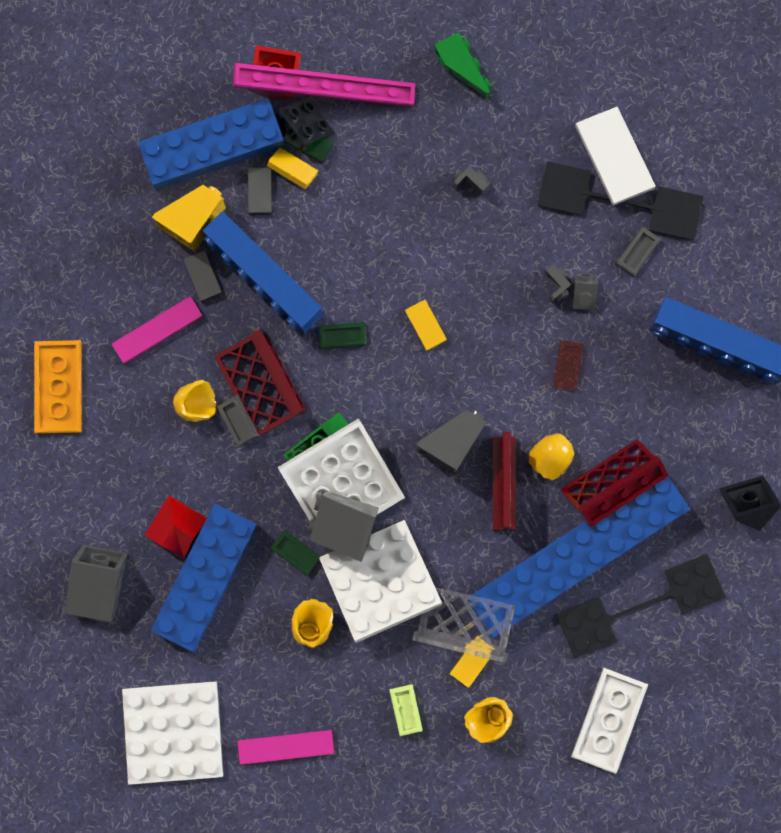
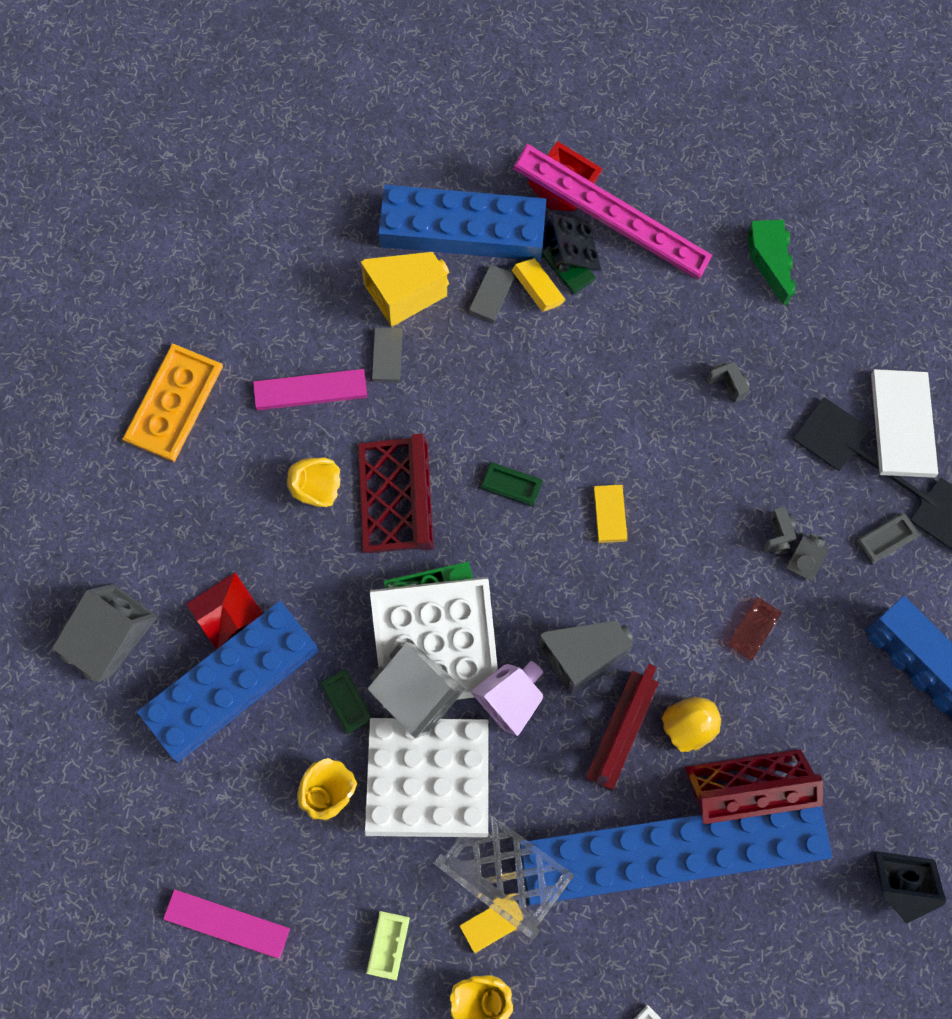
camera: 20 degrees right, 10 degrees down
(172, 732) = (105, 845): white plate -> none
(238, 421) = (351, 525): dark grey tile -> none
(259, 269) = (454, 377): blue brick -> none
(413, 496) = (510, 695): none -> torso
(591, 628) = (796, 950): black hinge -> none

